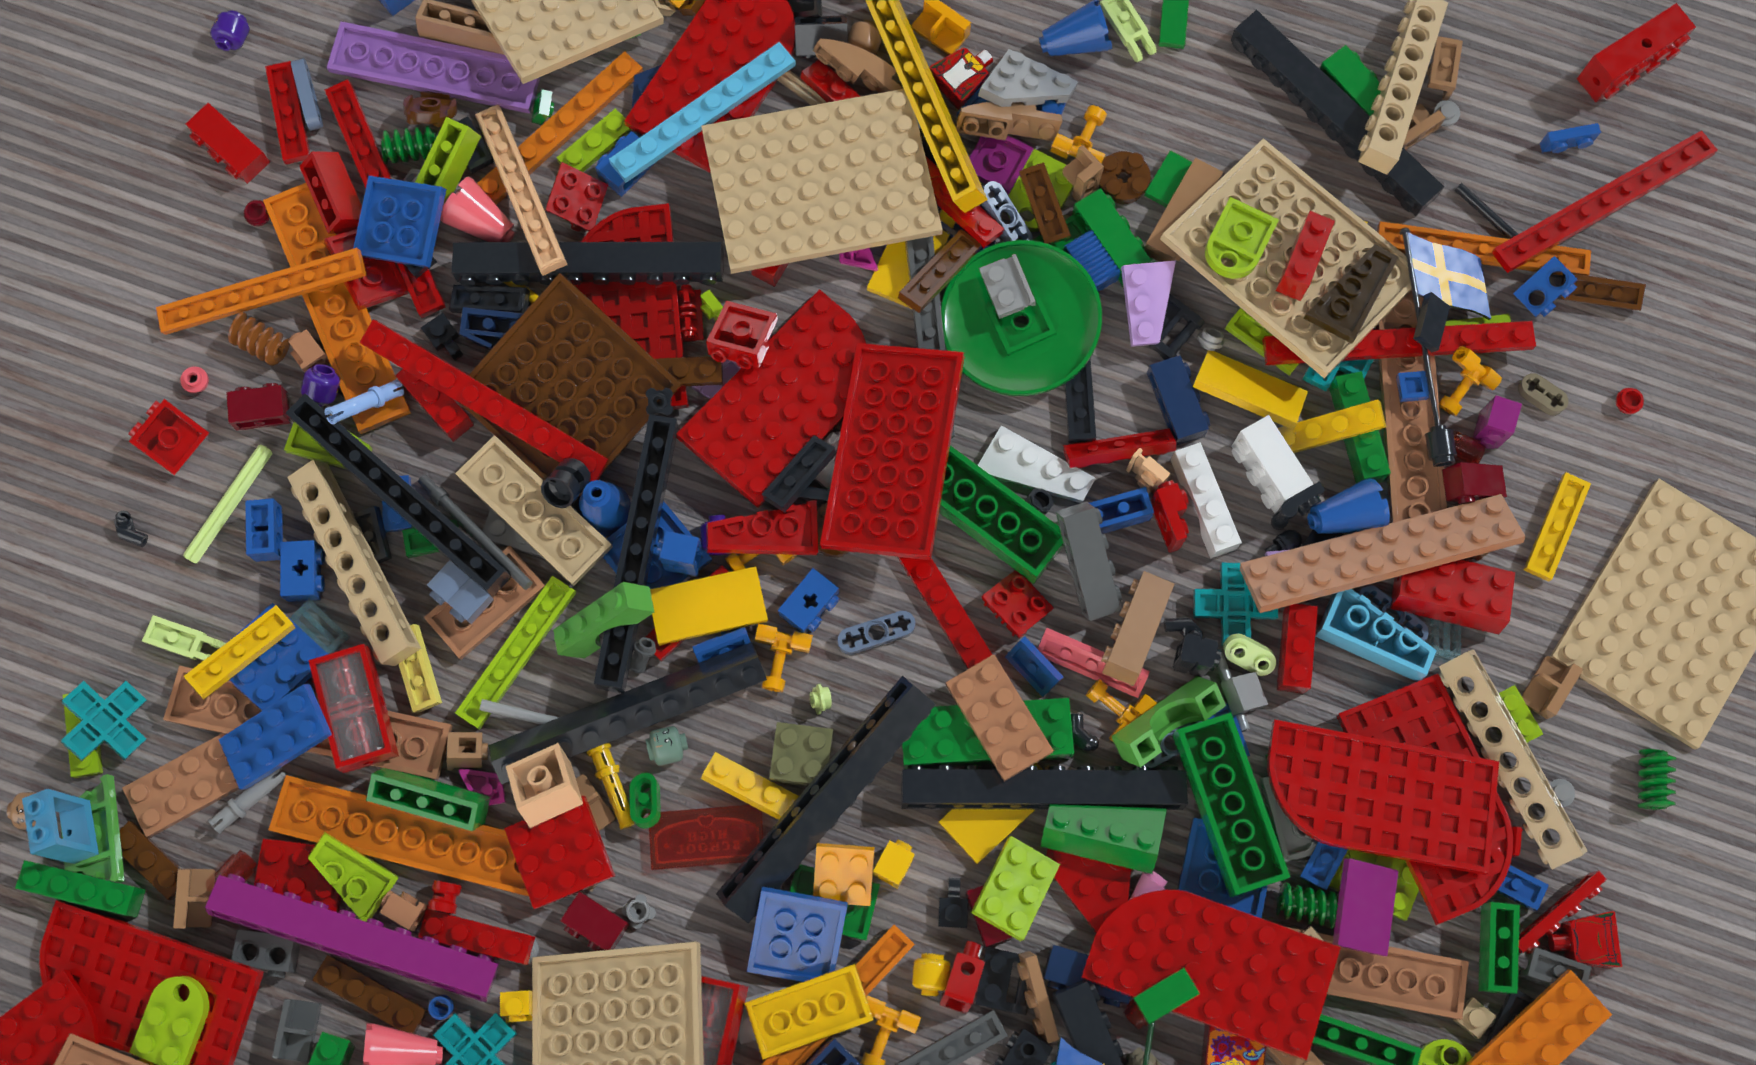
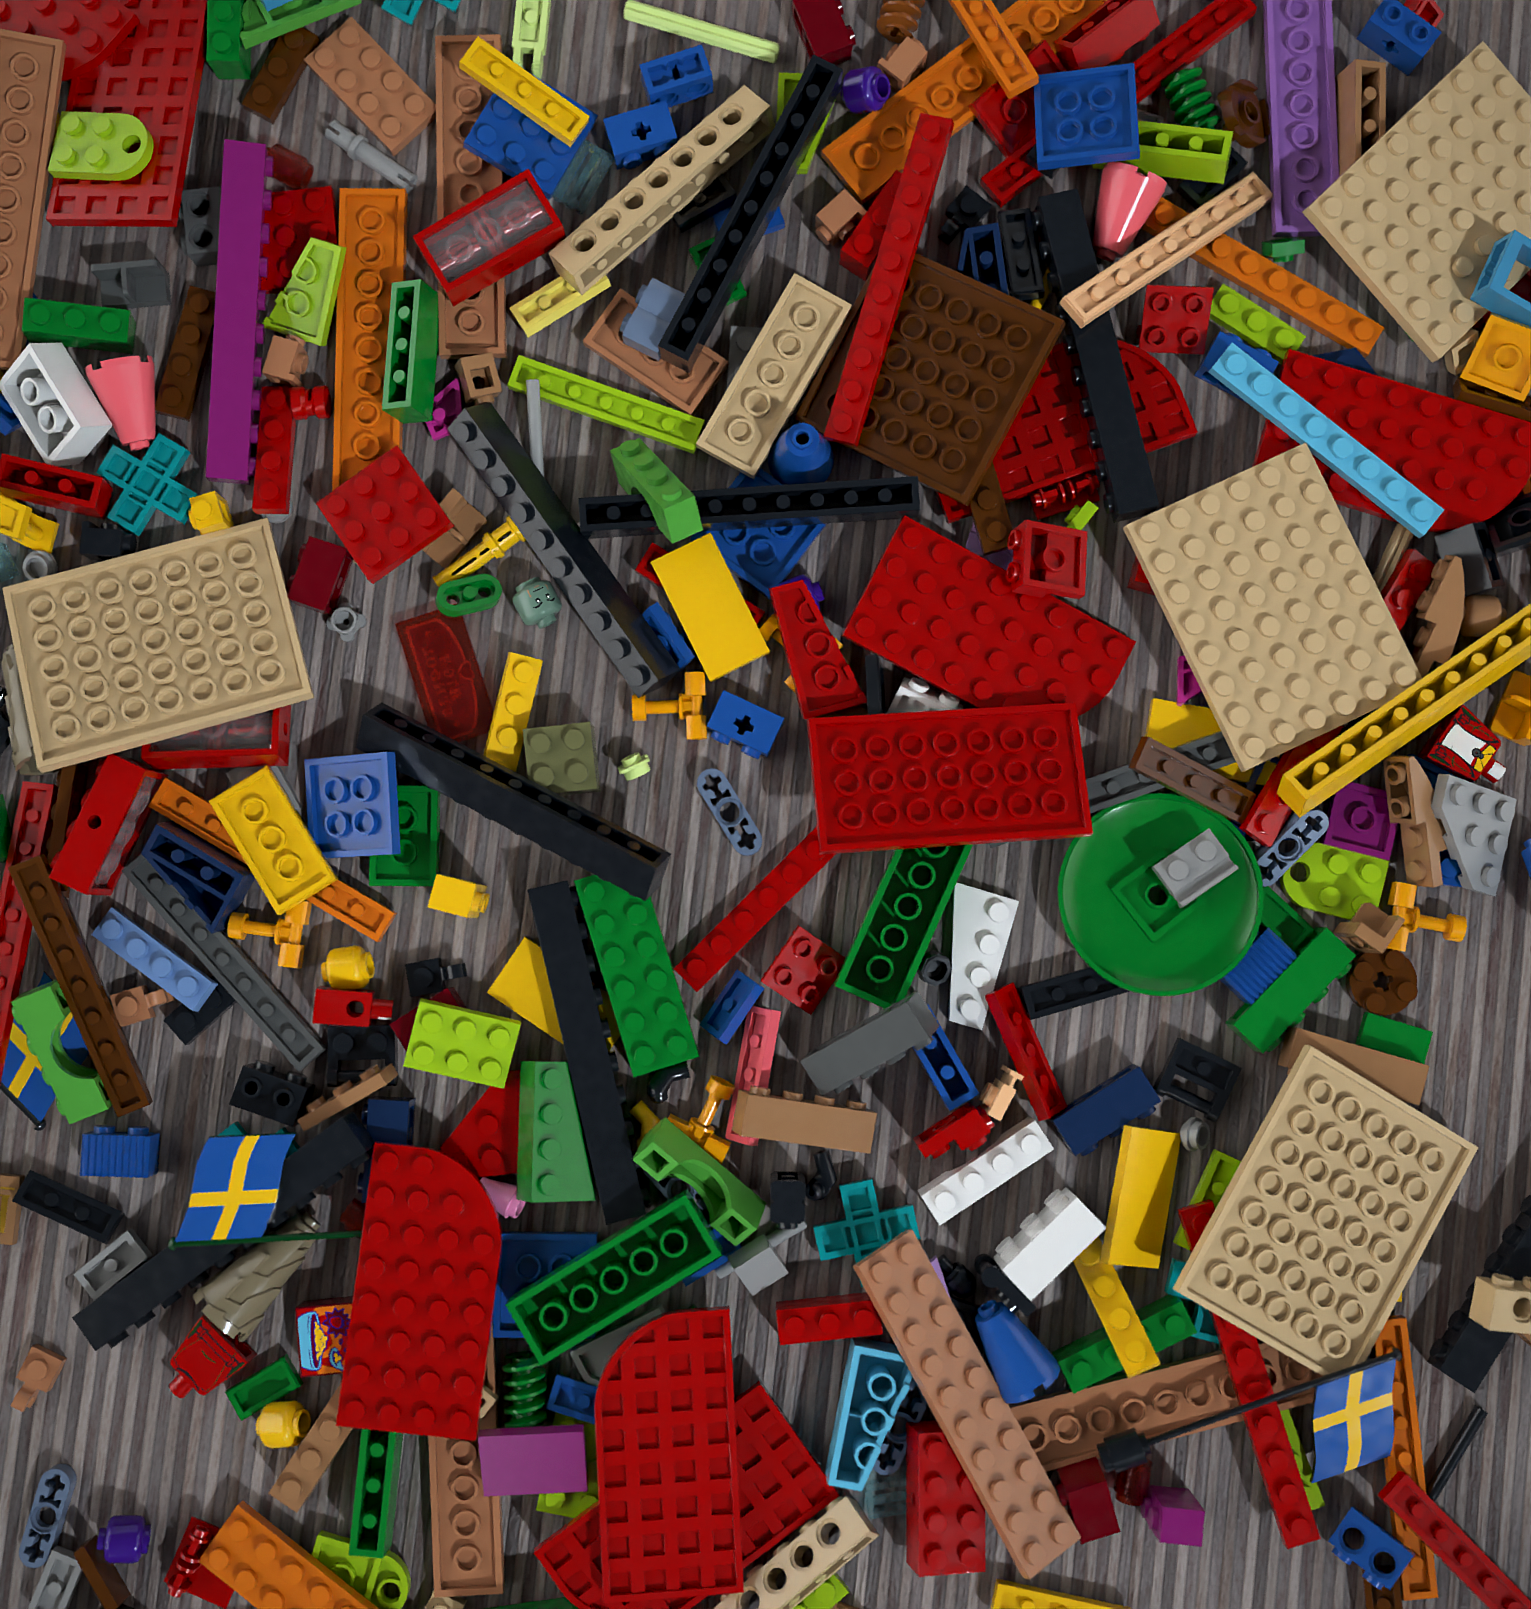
camera: 80 degrees right, 10 degrees up
(192, 895) = (248, 123): medium nougat panel -> none
(275, 736) = (437, 160): blue plate -> none
(373, 397) = (860, 151): light blue pin -> none
(418, 430) = (838, 218): none -> nougat brick
(440, 1012) = (191, 433): blue hinge -> none
(441, 498) = (766, 269): dark grey bar -> none
(544, 785) = (448, 474): light nougat brick -> none
(565, 483) = (811, 402): black wheel -> none
(643, 651) = (638, 547): dark grey pin -> none
(665, 407) = (945, 488): black plate -> none
(680, 553) = (759, 557): blue brick -> none
(799, 473) = (892, 673): black plate -> none
(844, 873) = (432, 841): light orange plate -> none
(999, 717) = (652, 979): nougat plate -> none
(1044, 204) = (1316, 890): reddish brown plate -> none
(1110, 756) = (645, 1118): none -> yellow arm
(1146, 299) = (1223, 1044): lavender wing -> none
(1166, 996) = (369, 1246): green tile -> none
(1239, 236) = (1330, 1145): lime plate -> none
(1251, 655) = (806, 1264): yellowish green plate -> none
(1305, 255) = (1328, 1233): red brick -> none
(1351, 299) = (1282, 1303): dark brown wing -> none
(1412, 386) = (1193, 1400): blue plate -> none
(1431, 322) = (1282, 1410): black tile -> none
(1472, 373) = (1233, 1474): light orange bar -> none
(1543, 394) = (1236, 1569): dark tan beam -> none

